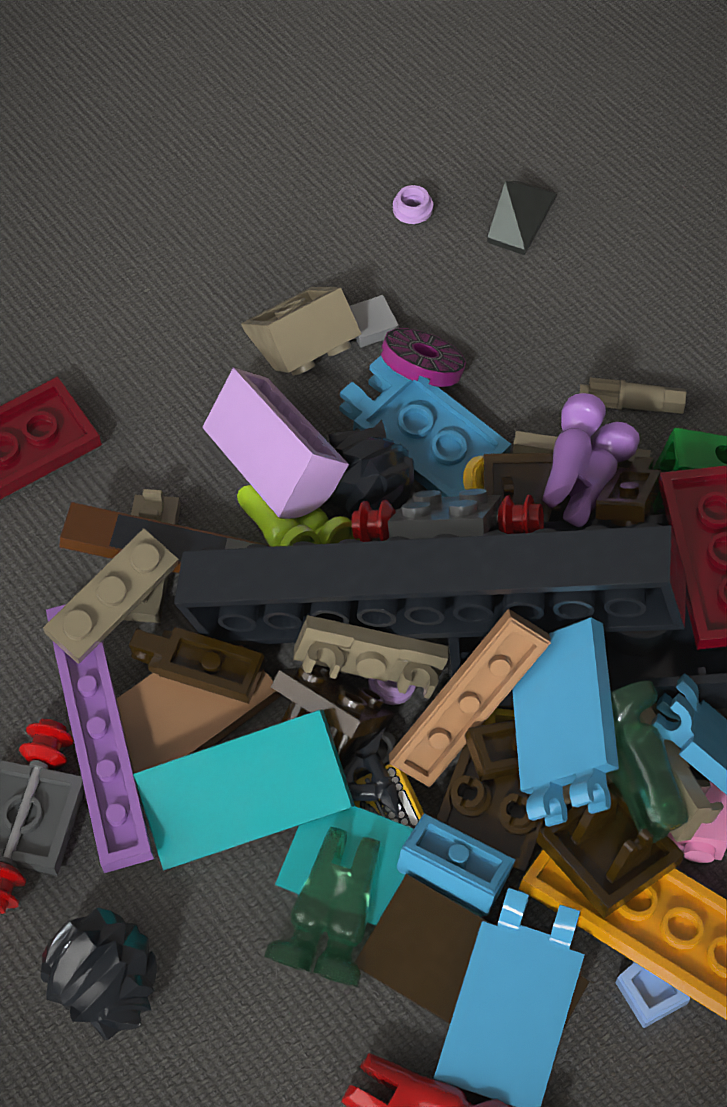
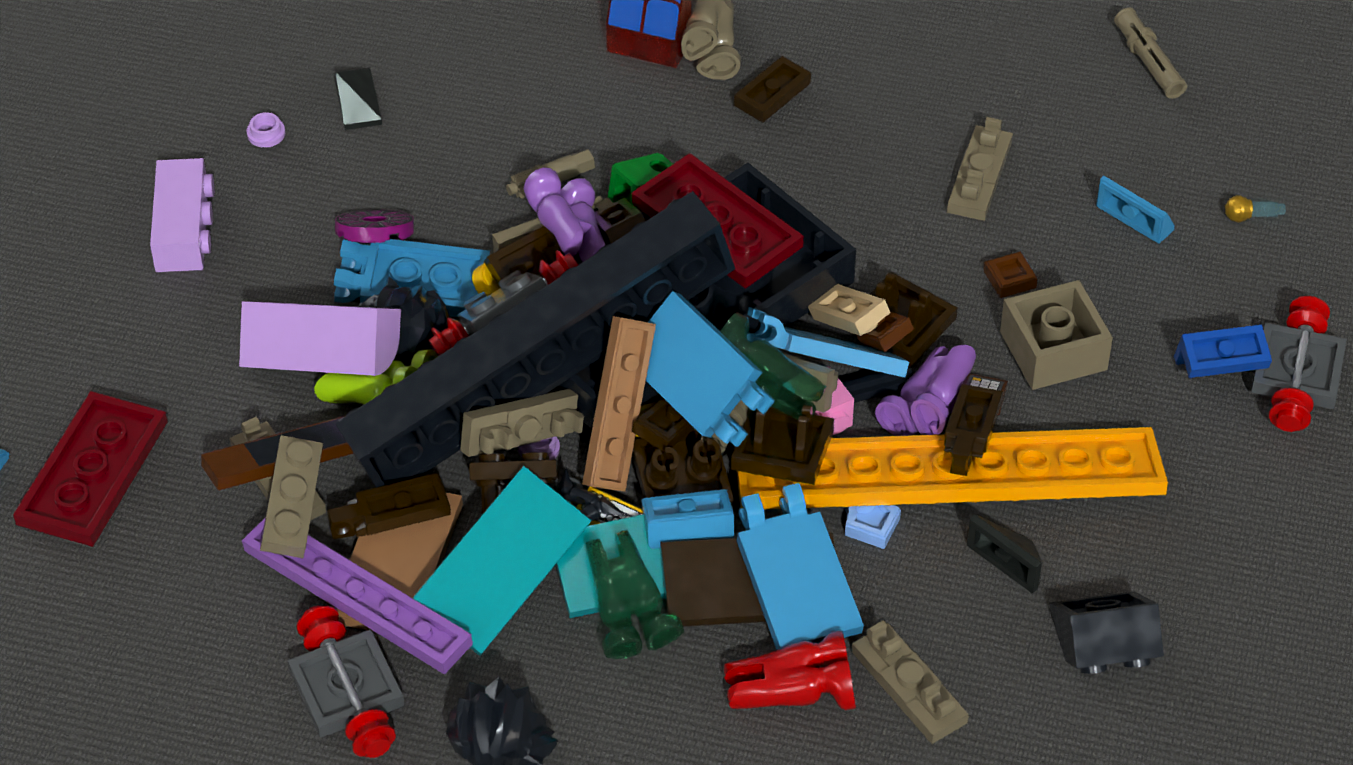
camera: 40 degrees left, 10 degrees down
(270, 247) = (181, 215): none -> lavender brick
(303, 329) = (259, 256): dark tan slope -> none
(373, 320) = (305, 227): light grey tile -> none

